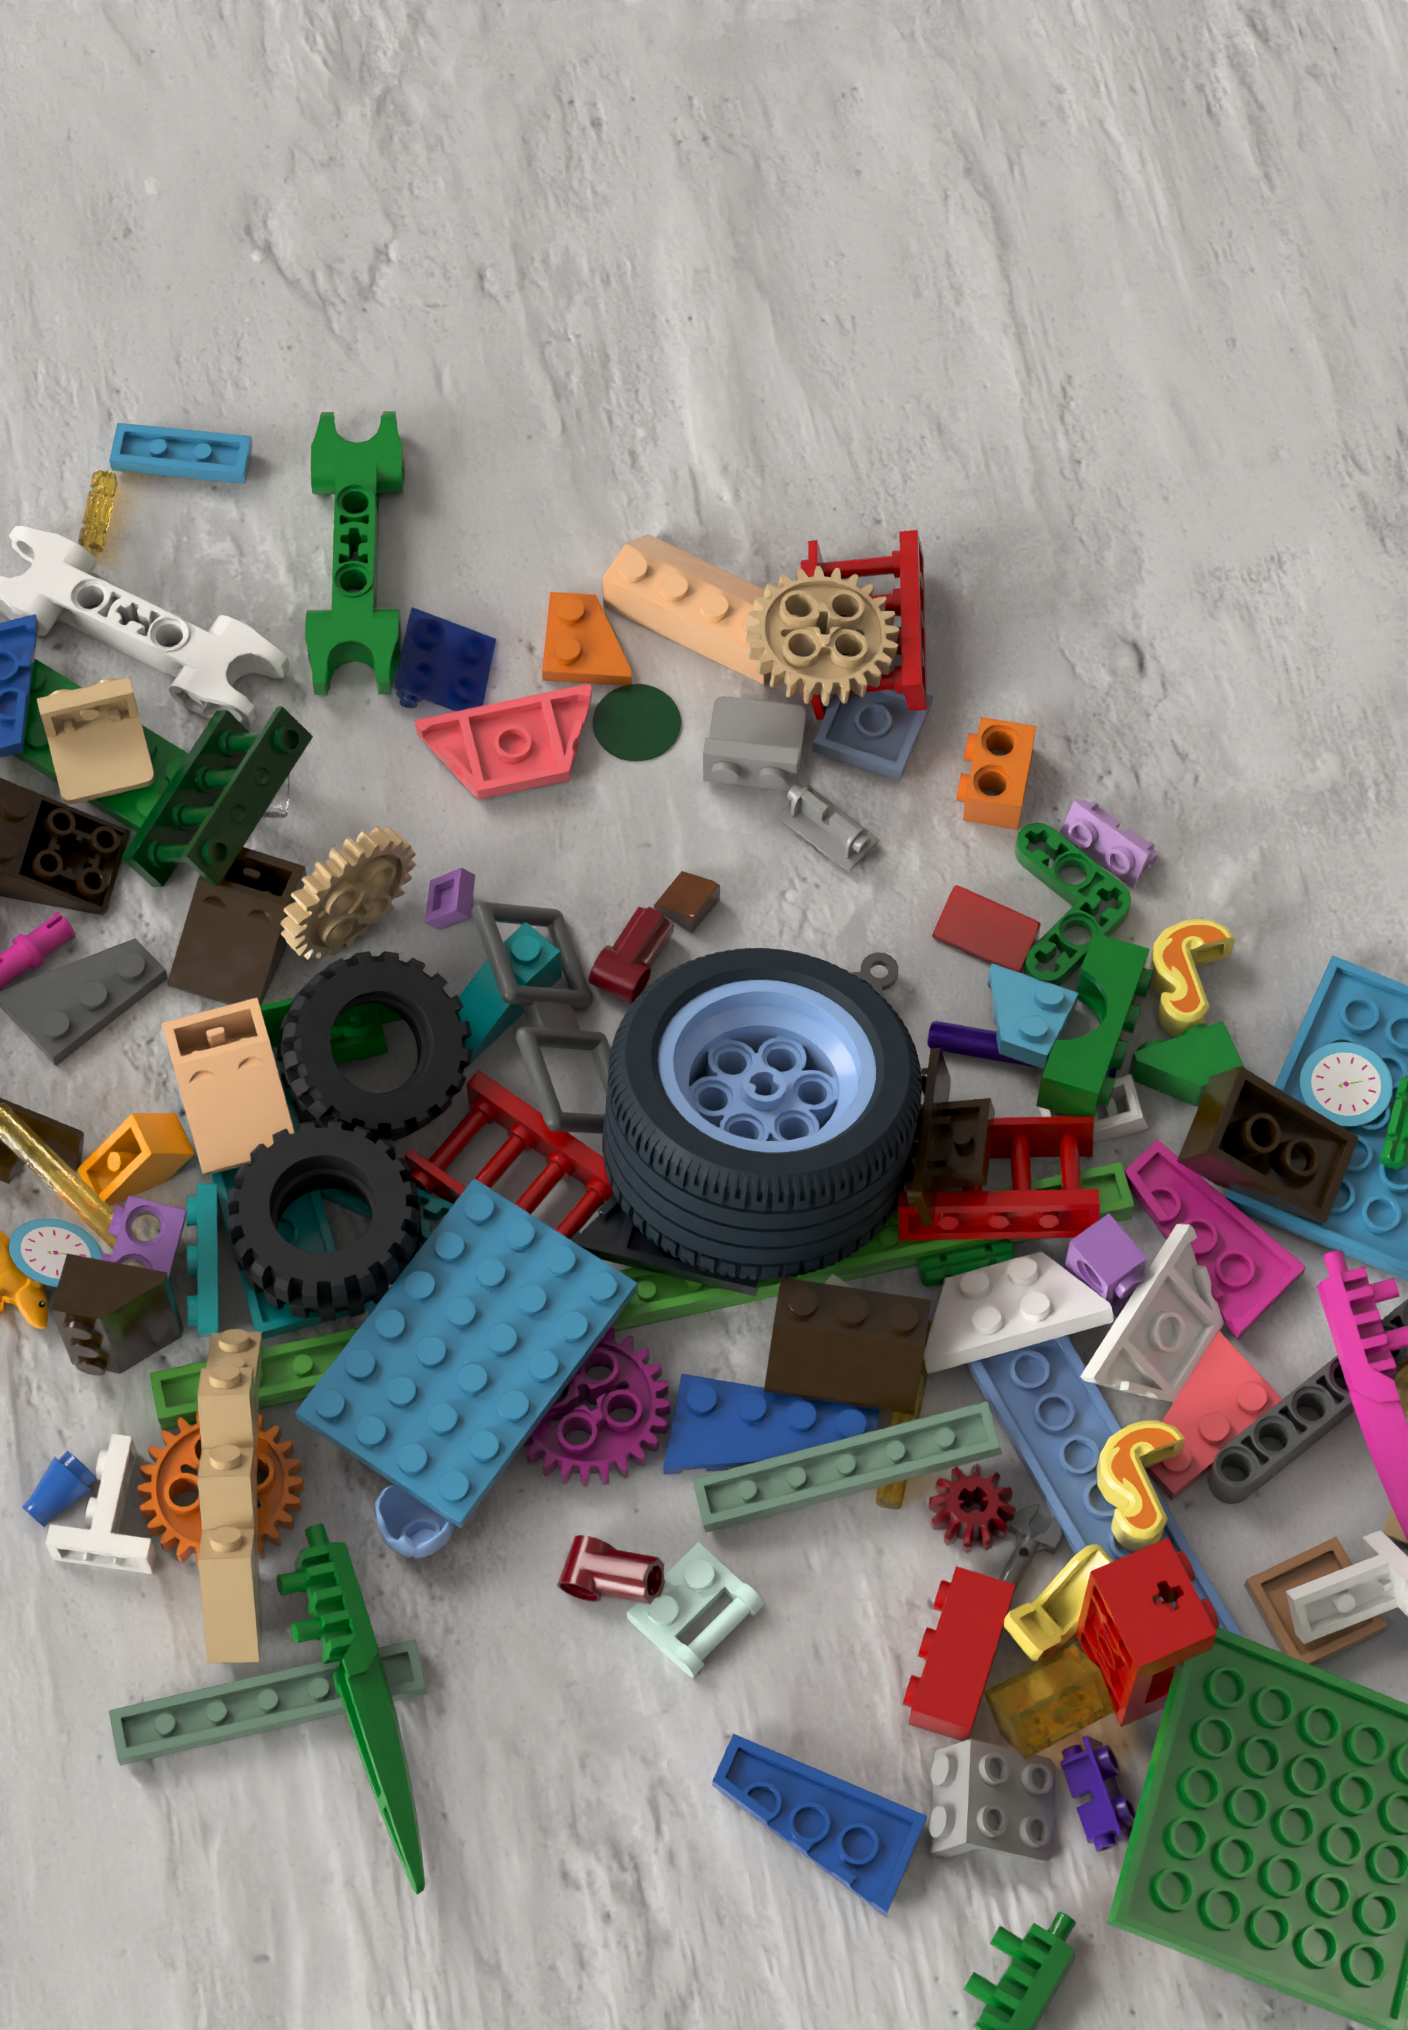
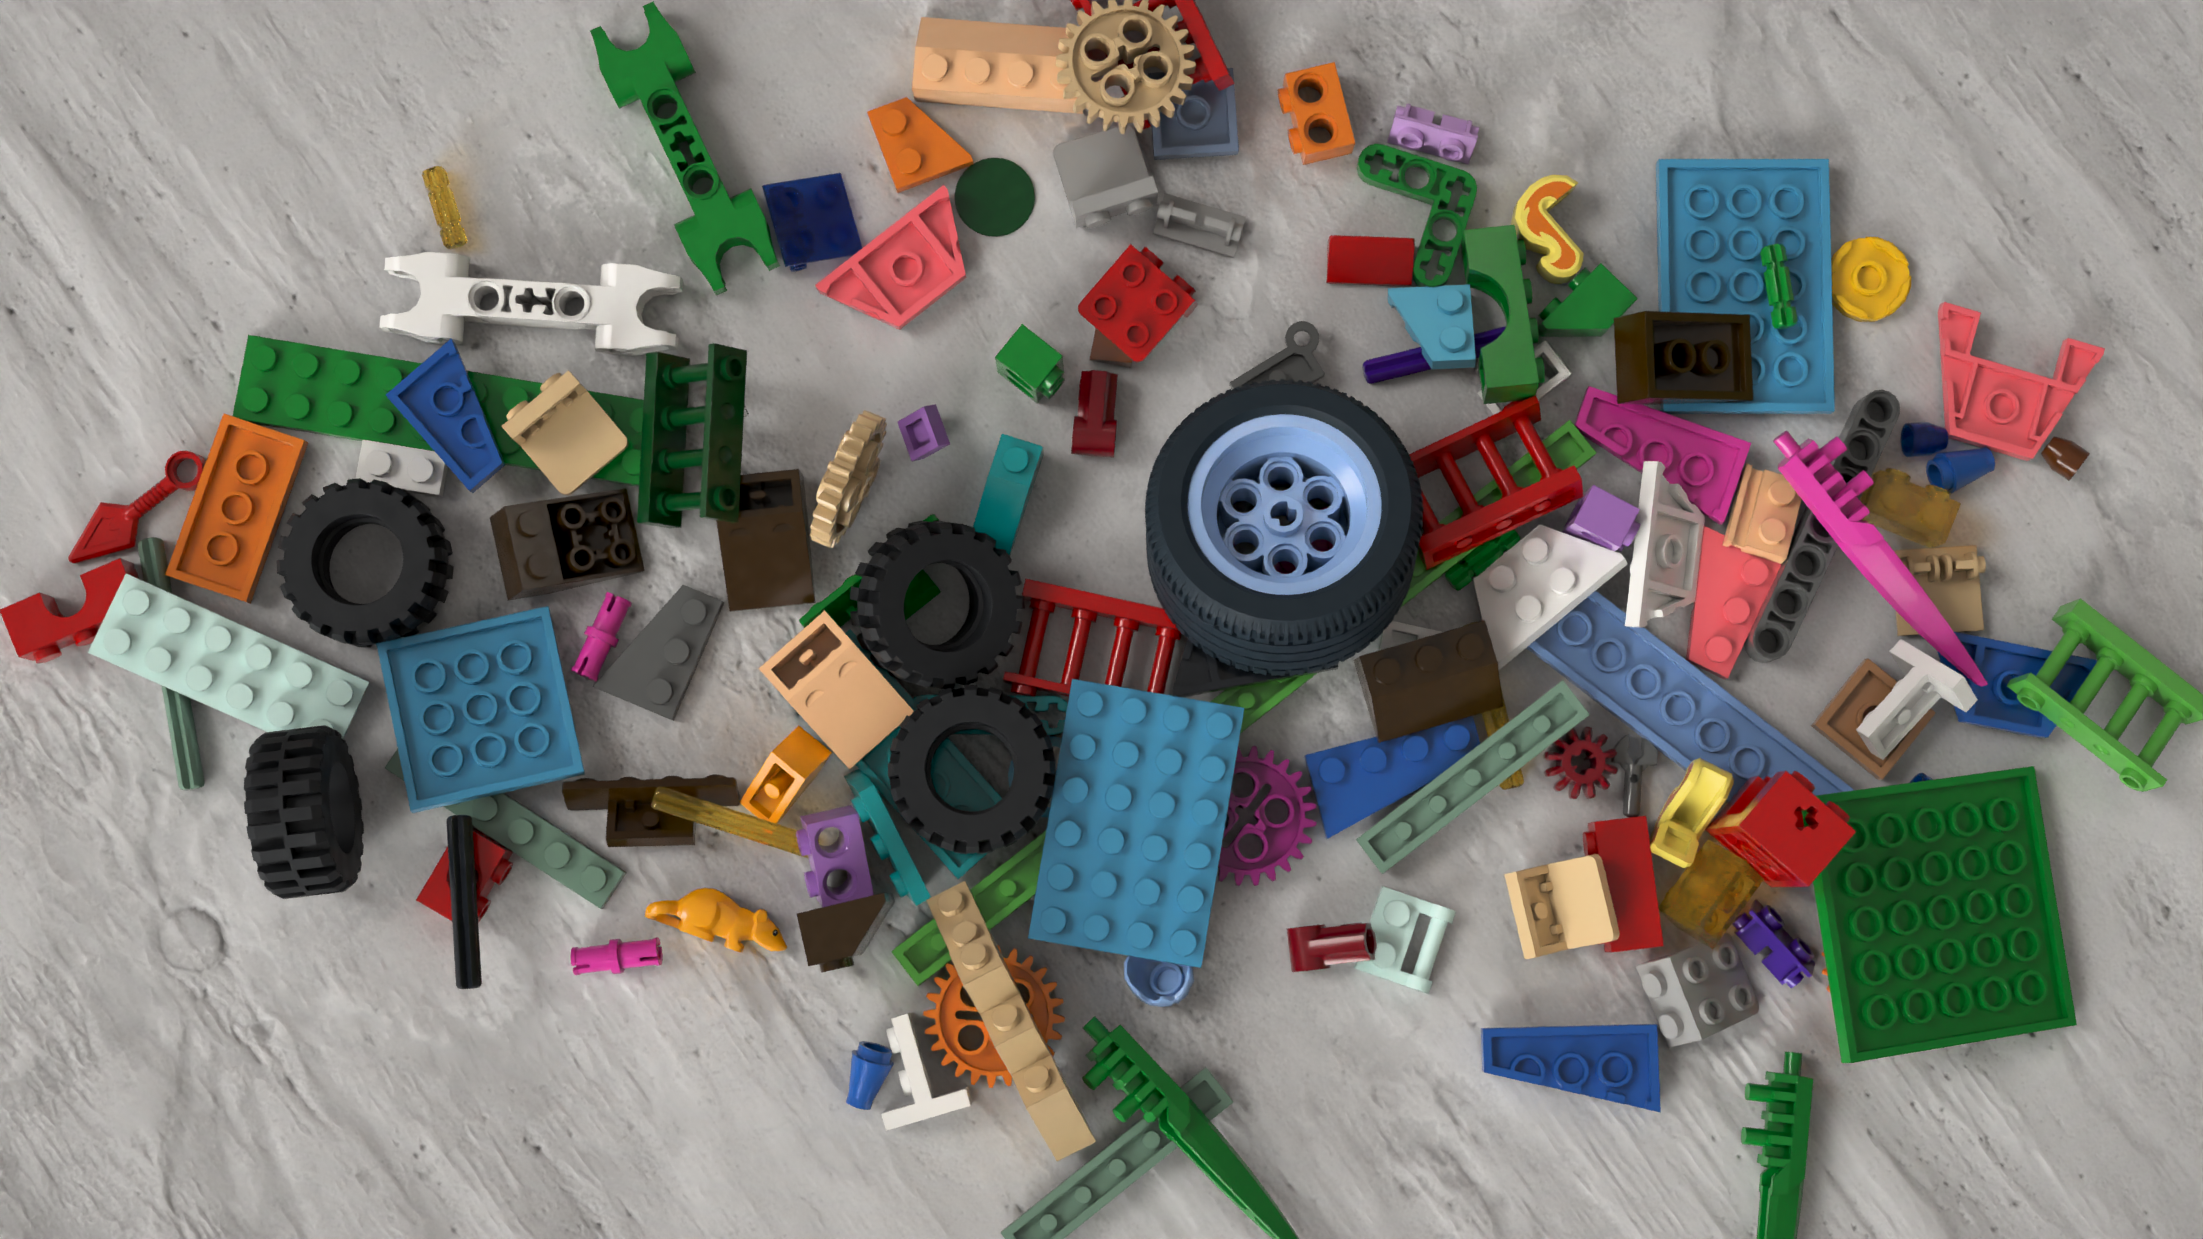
camera: 25 degrees left, 20 degrees up
(42, 1246) = (762, 884): sticker -> none
(181, 453) = (487, 120): dark azure plate -> none
(545, 1009) = (1057, 501): dark grey bar -> none
(588, 873) = (1031, 365): none -> green brick
(727, 864) = (1137, 303): none -> red bracket
(877, 1642) = (1562, 906): none -> tan bracket
(951, 1141) = (1444, 477): dark brown bracket -> none
(1126, 1485) = (1695, 695): light yellow animal -> none
(1286, 1345) = (1763, 515): none -> light nougat plate
(1346, 1083) = (1717, 269): sticker -> none

